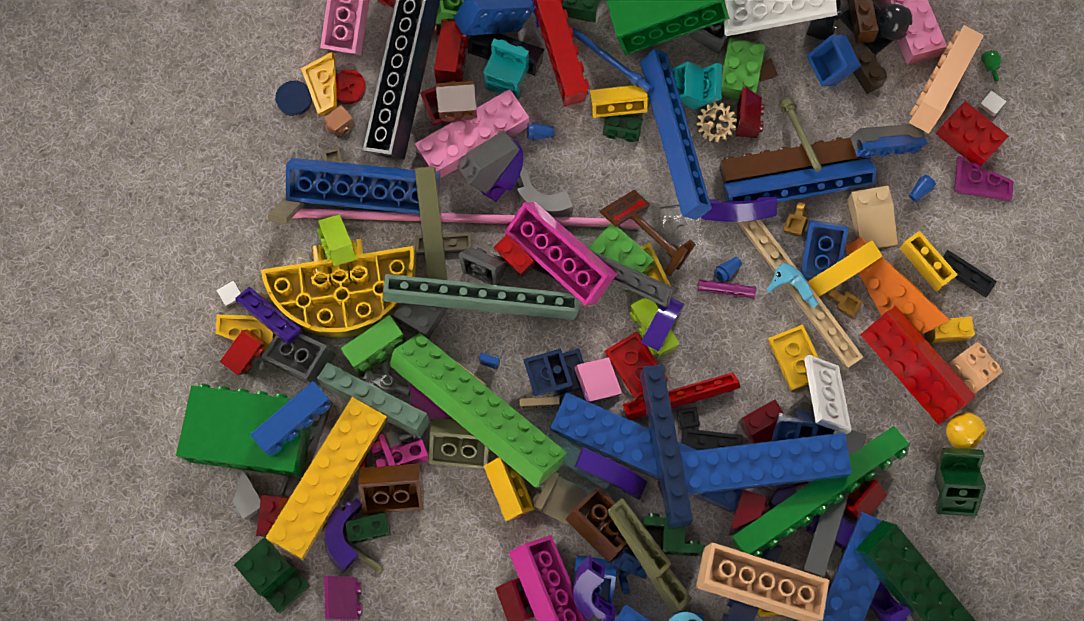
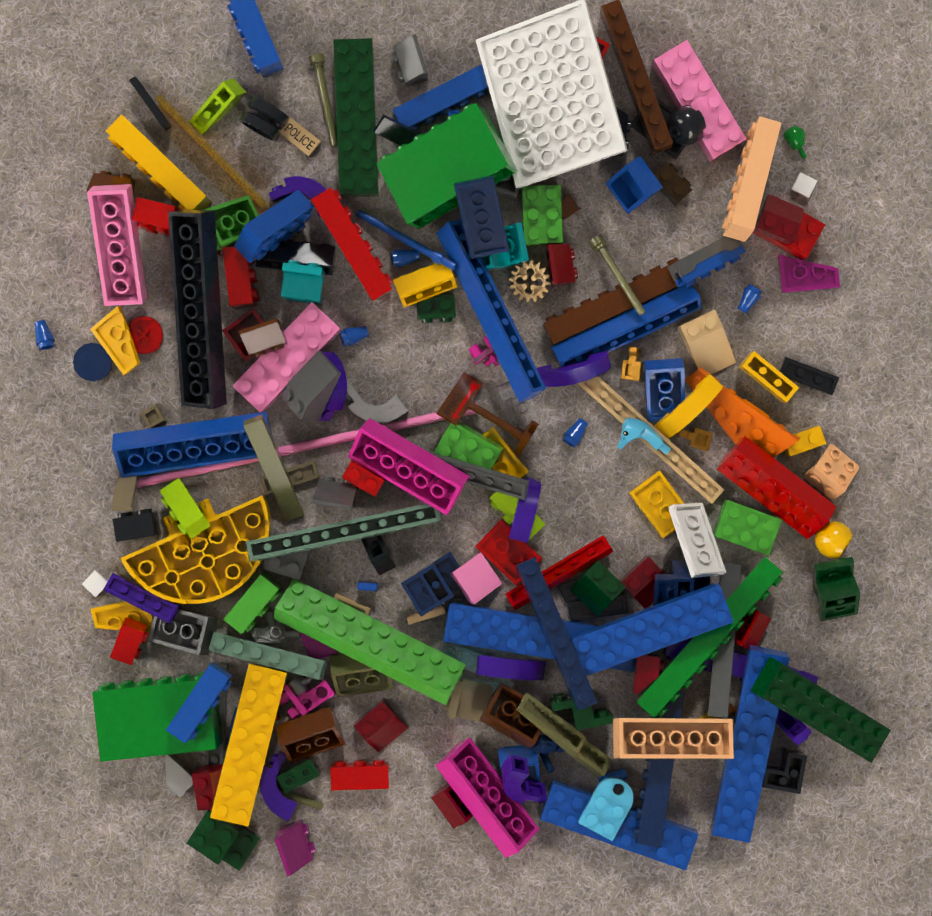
camera: 15 degrees left, 15 degrees up
(257, 65) = (44, 337): none -> blue cone
(285, 246) = (136, 526): none -> black brick
(338, 122) = (147, 378): nougat brick -> none
(429, 546) = (359, 775): none -> red brick
(464, 502) = (380, 725): none -> dark red slope
(508, 332) = (378, 554): none -> black slope
(508, 489) = (421, 708): yellow brick -> none
(604, 76) = (402, 257): none -> blue cone
(660, 178) = (478, 355): none -> dark pink hips
(687, 43) = (481, 216): none -> dark blue tile
(717, 419) = (597, 588): none -> dark green slope
(725, 288) = (578, 453): magenta pin -> none
(879, 398) = (746, 527): none -> bright green brick
(965, 119) = (779, 220): none -> dark red slope

